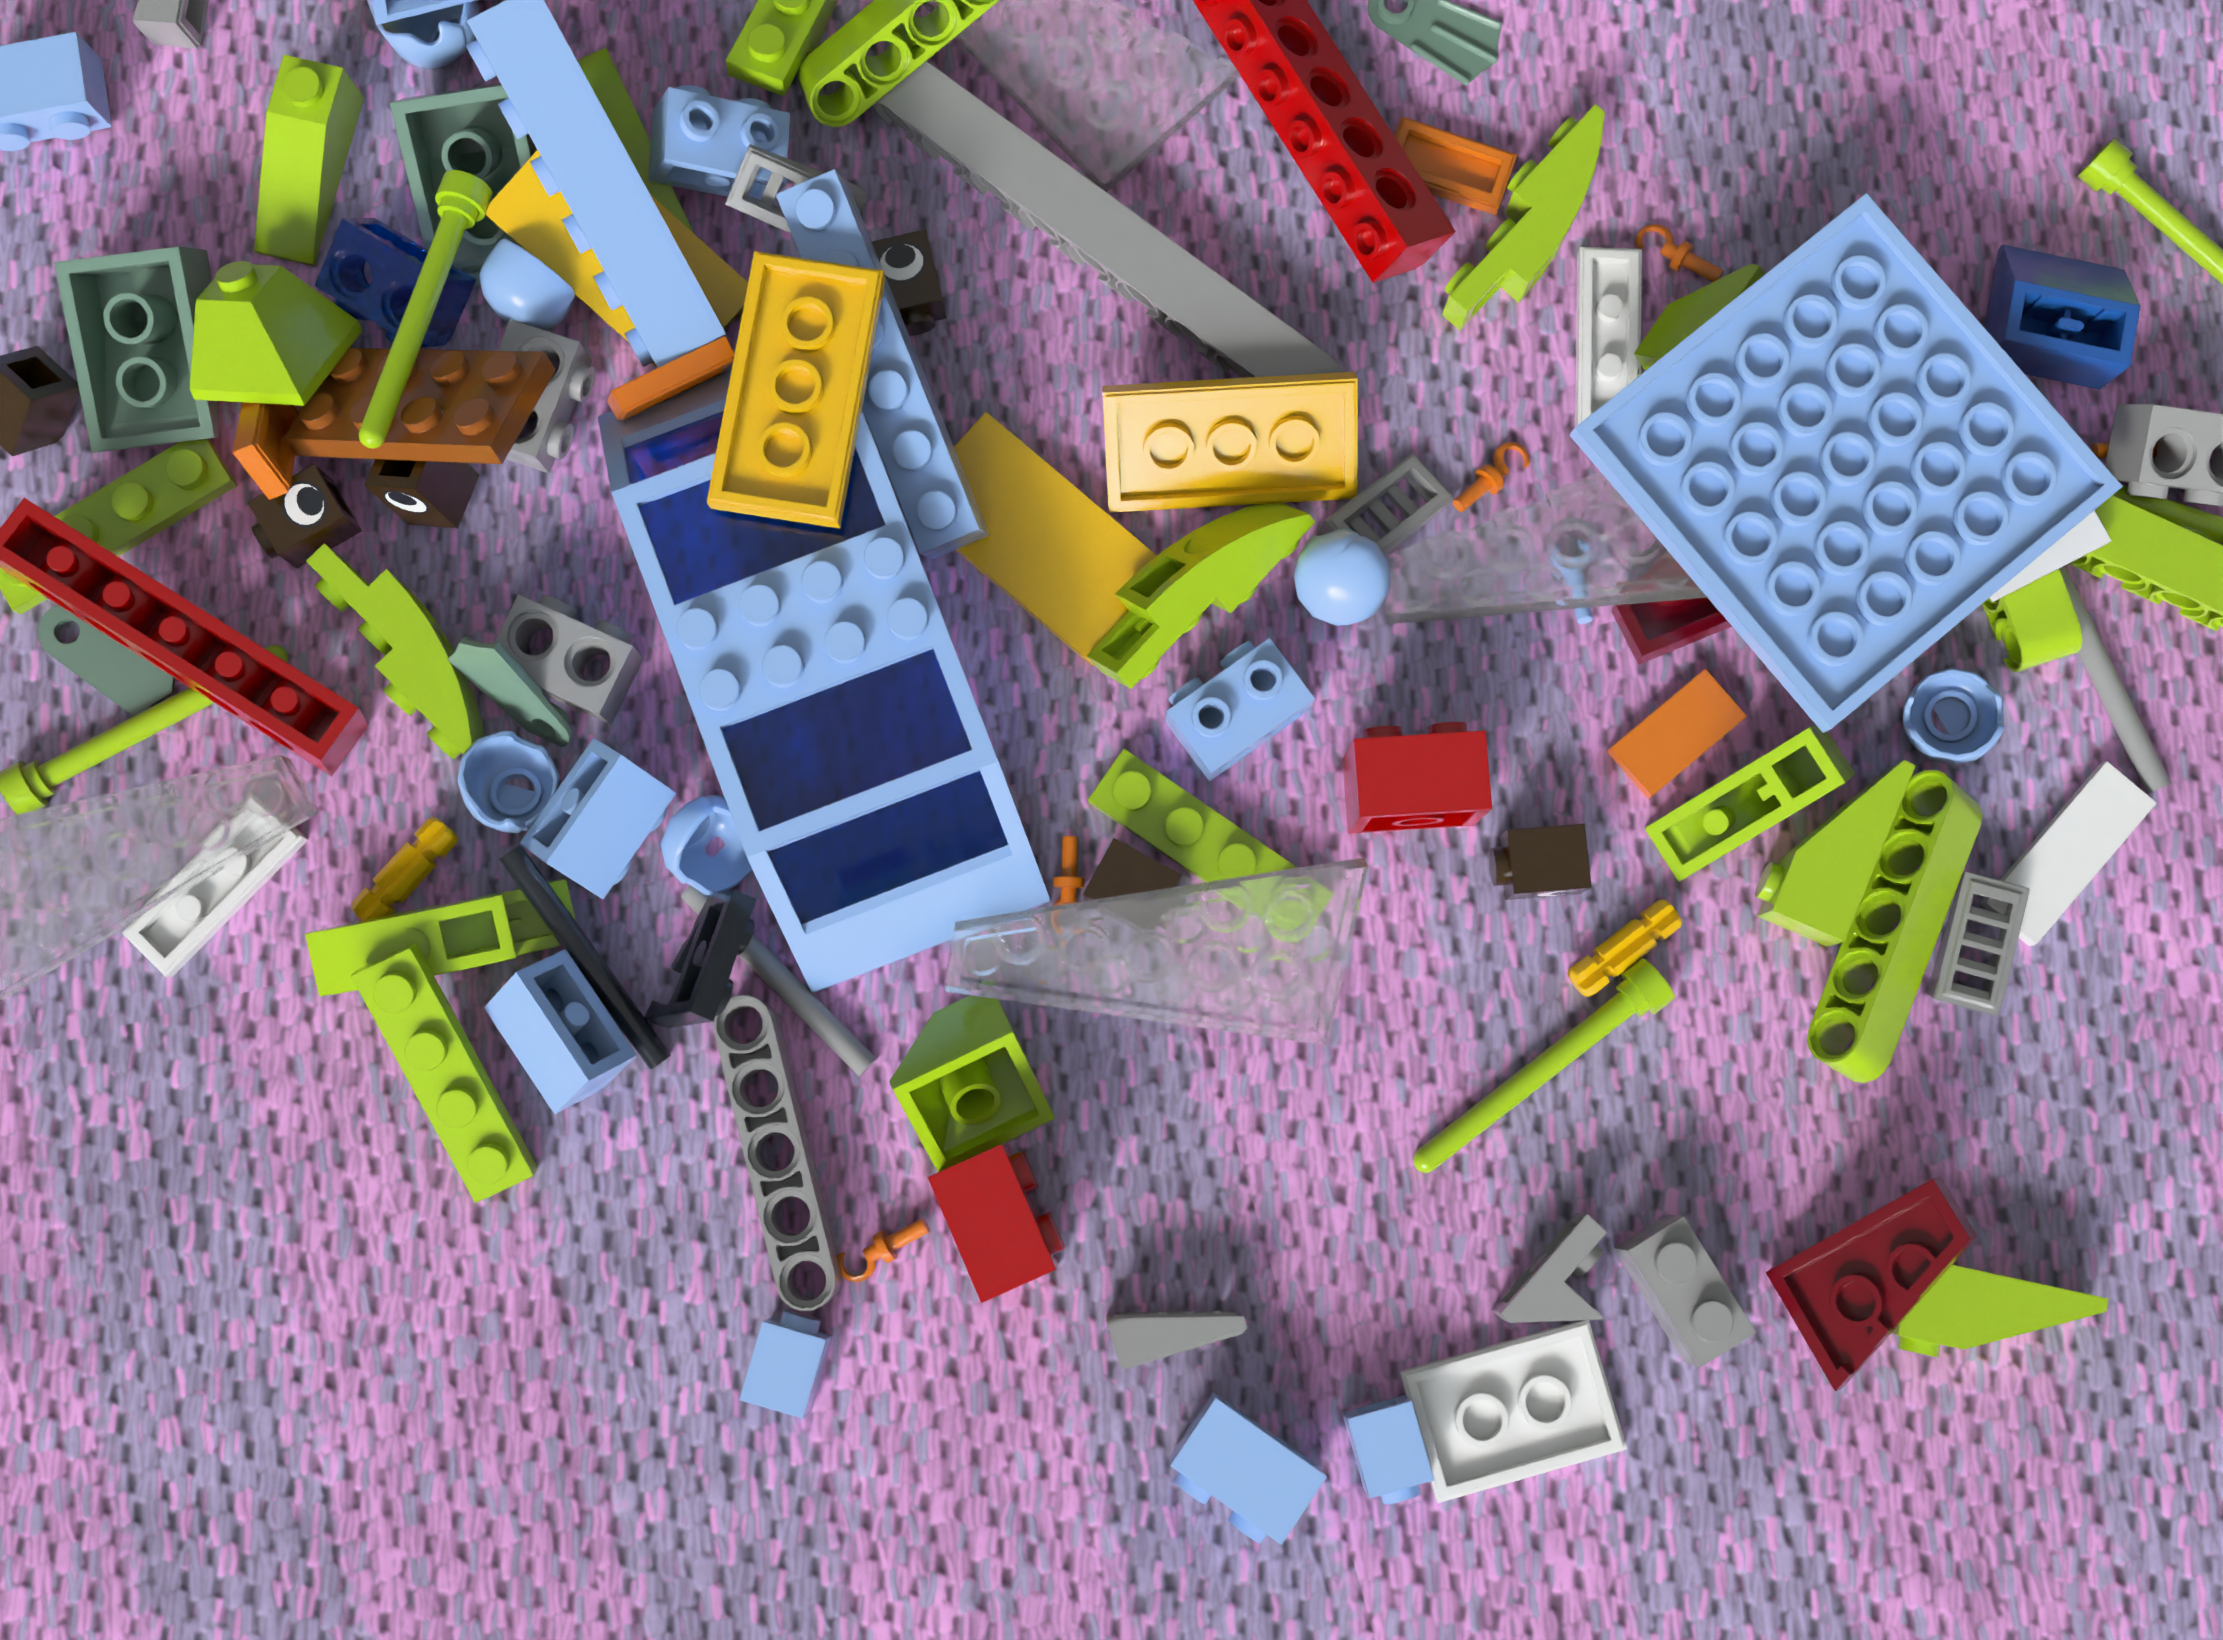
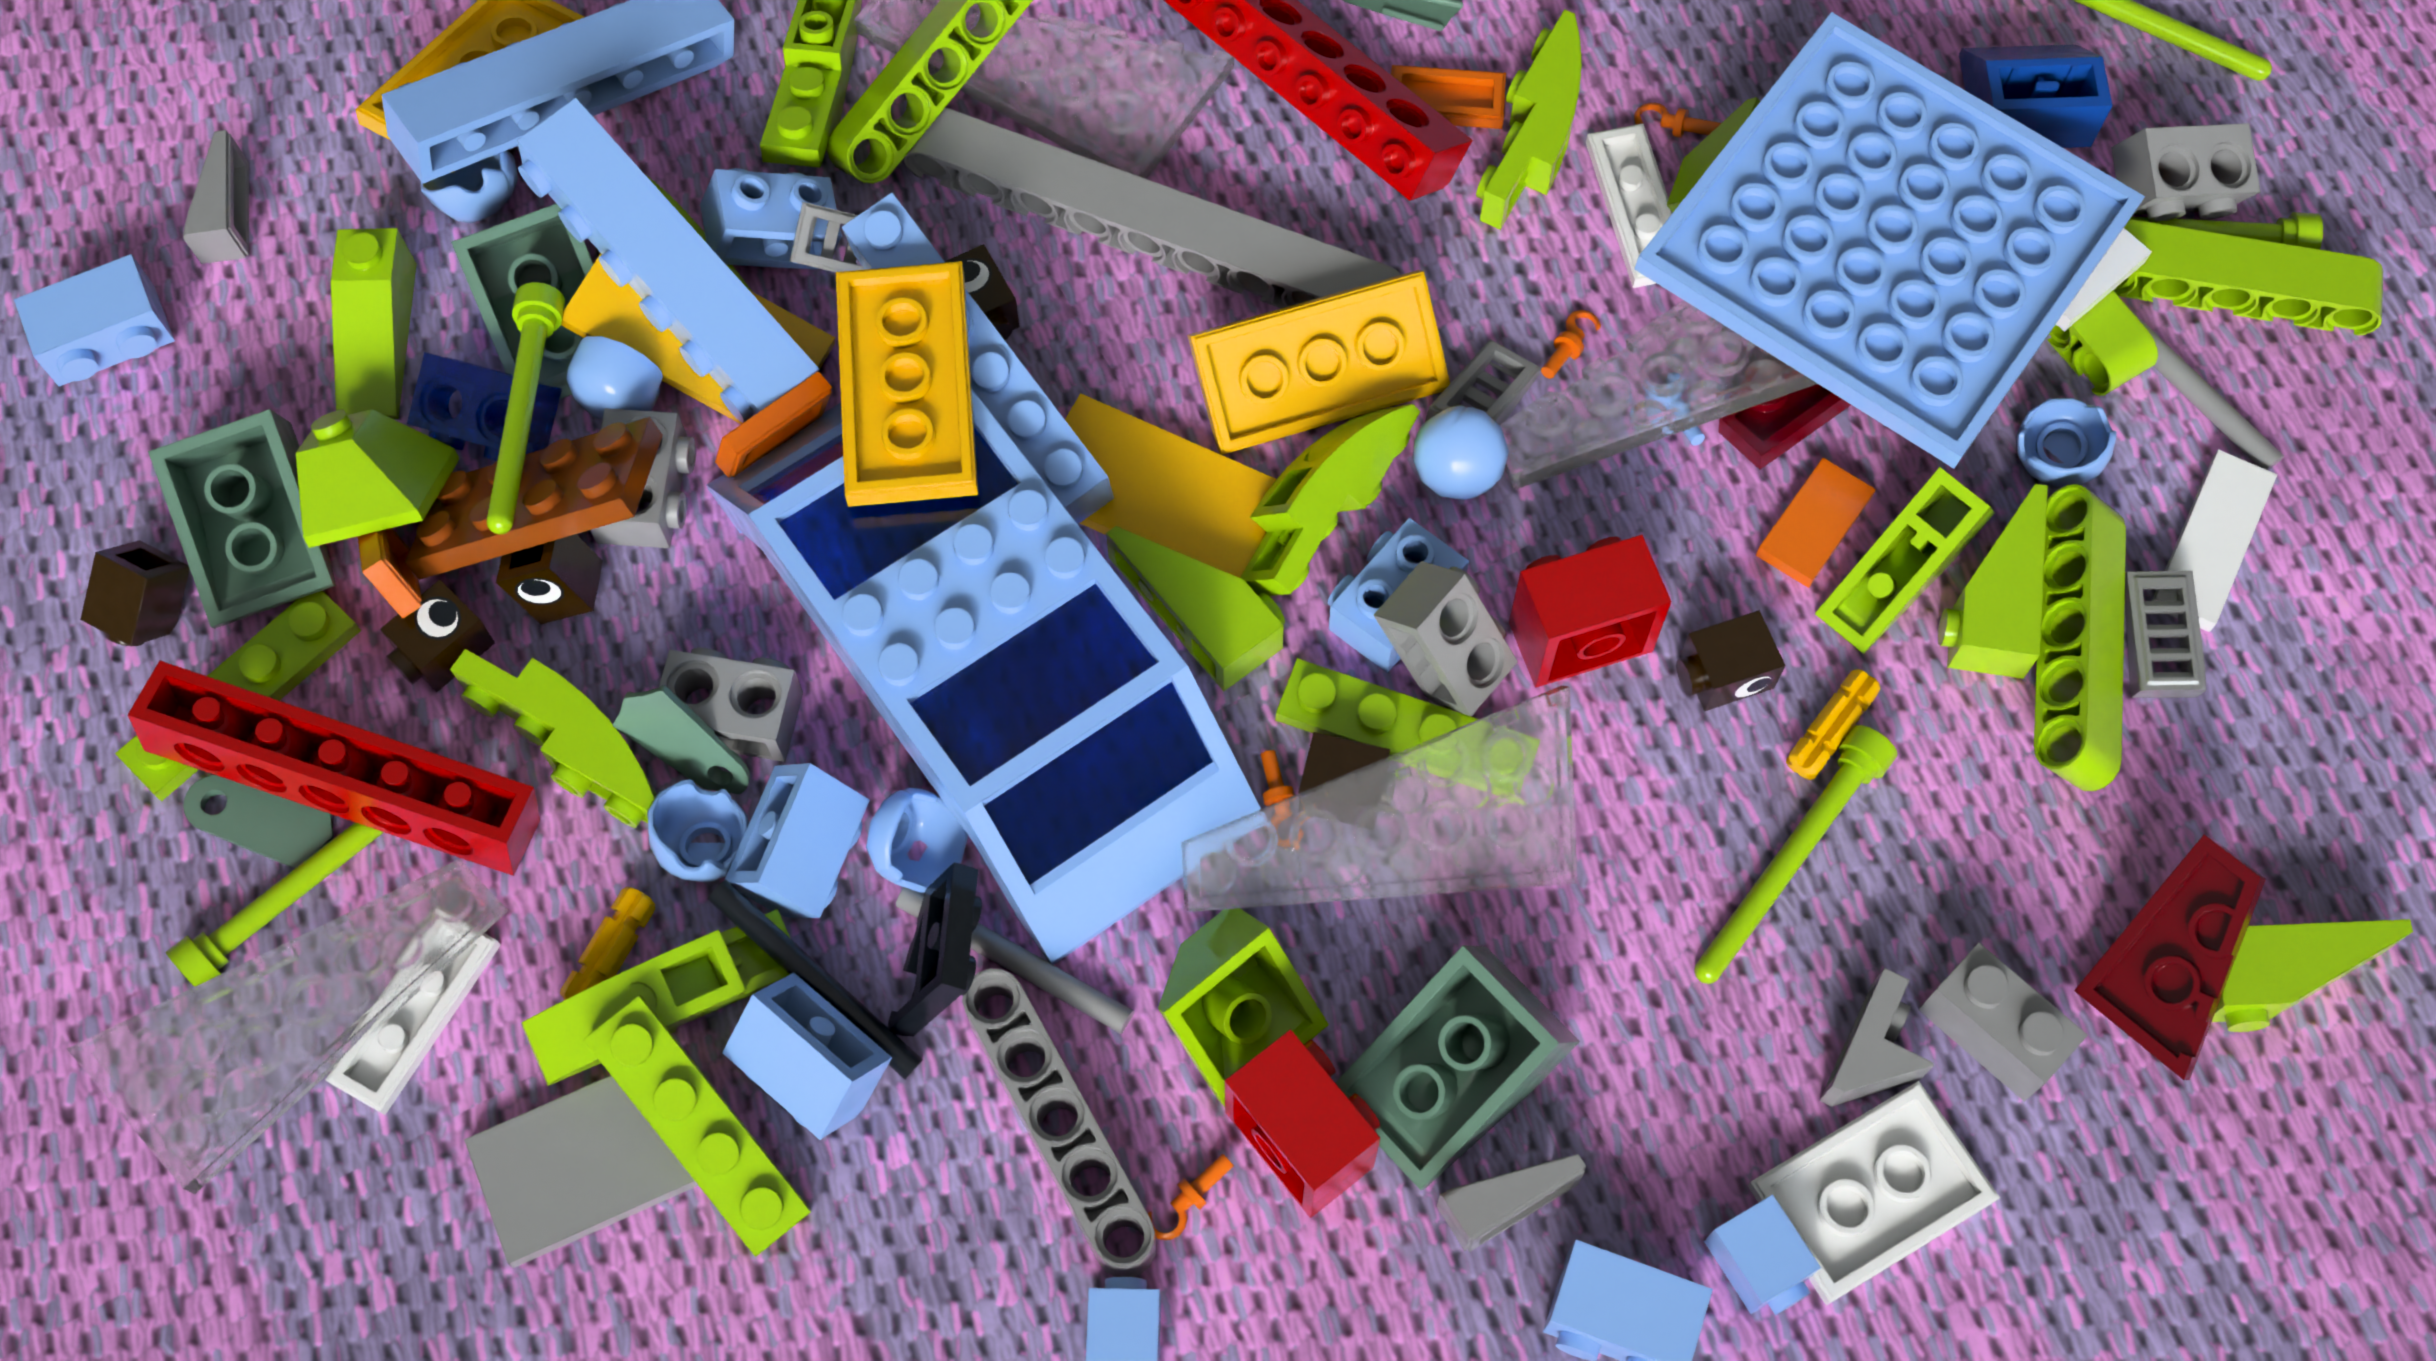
camera: 15 degrees left, 15 degrees down
(321, 1077) = (572, 1170): none -> light grey tile
(1049, 677) = (1205, 608): none -> lime slope
(1158, 1191) = (1456, 1062): none -> sand green slope
(1270, 773) = (1446, 637): none -> light grey brick

